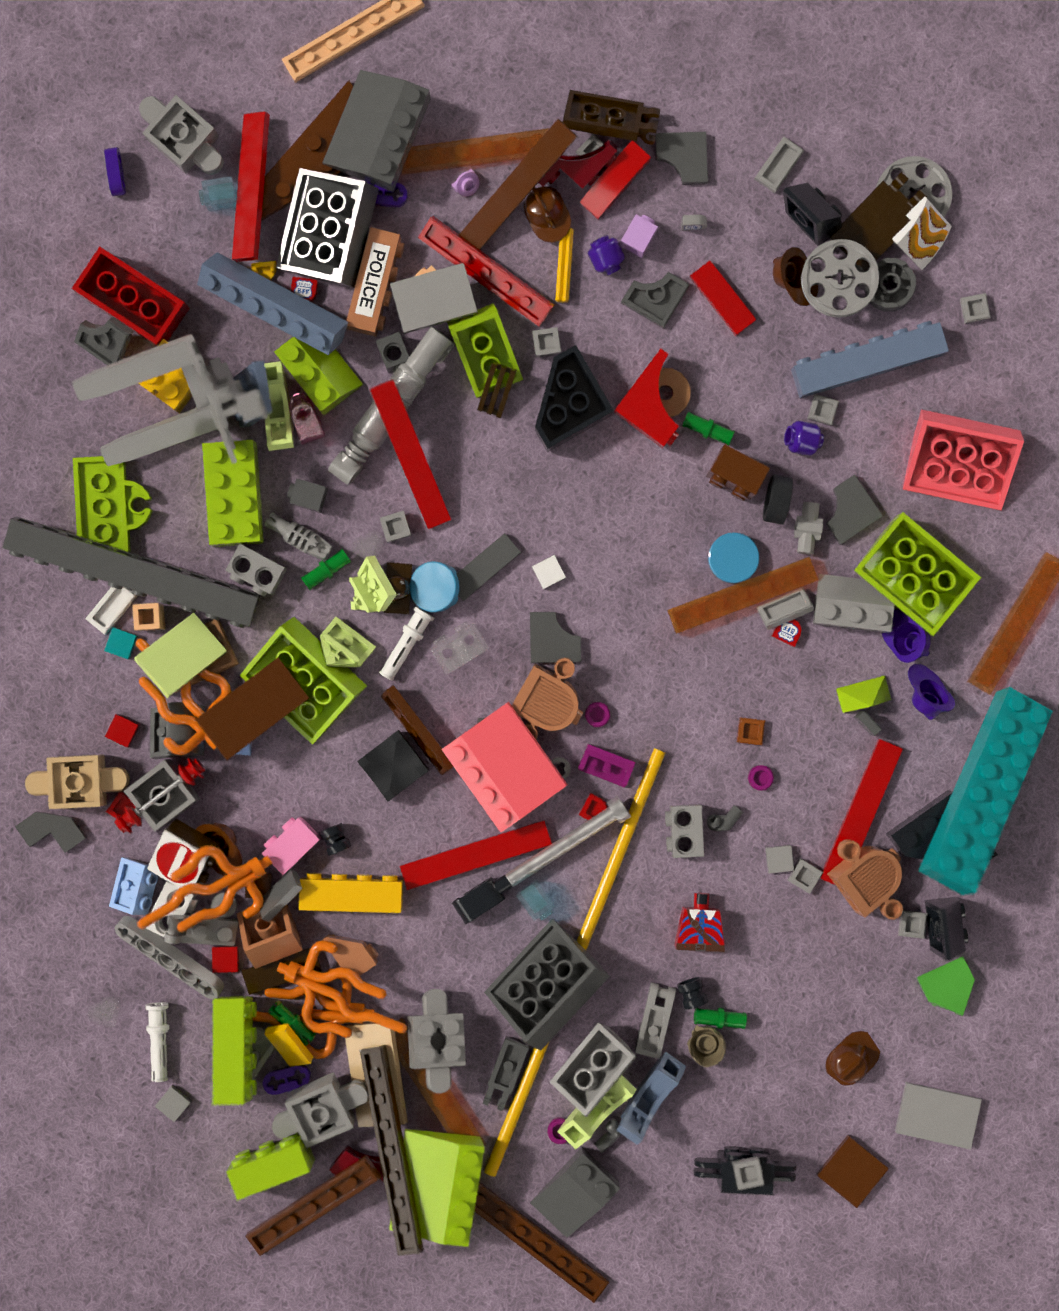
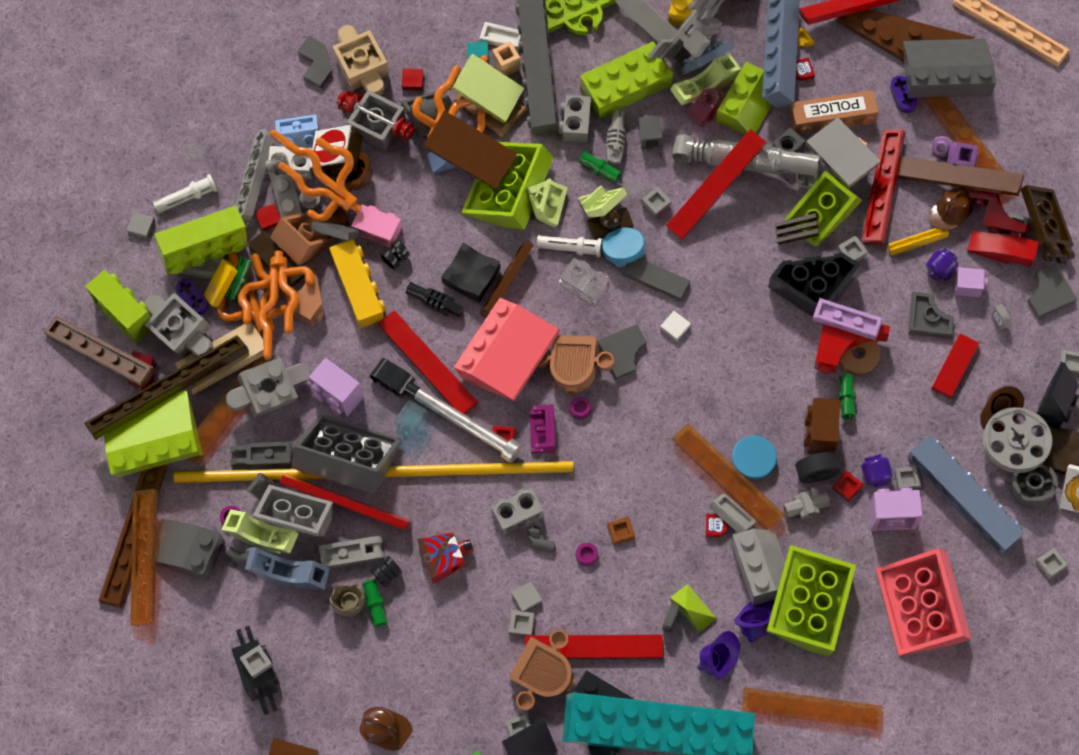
camera: 65 degrees right, 20 degrees down
(327, 227) = (857, 63): dark grey slope -> none
(406, 817) = (434, 299): none -> black hinge
(468, 968) = (335, 388): none -> lavender brick
(492, 169) = (962, 154): none -> medium lavender brick
(542, 1088) = (259, 486): none -> dark grey tile
(567, 768) = (527, 402): light grey bush -> none
(570, 1240) = (143, 558): none -> clear orange plate
(599, 1006) = (345, 501): none -> red tile
(634, 390) = (847, 319): none -> lavender tile
(804, 475) = (847, 486): none -> red tile
(853, 510) = (838, 536): dark grey tile -> none
(859, 442) = (895, 509): none -> lavender brick

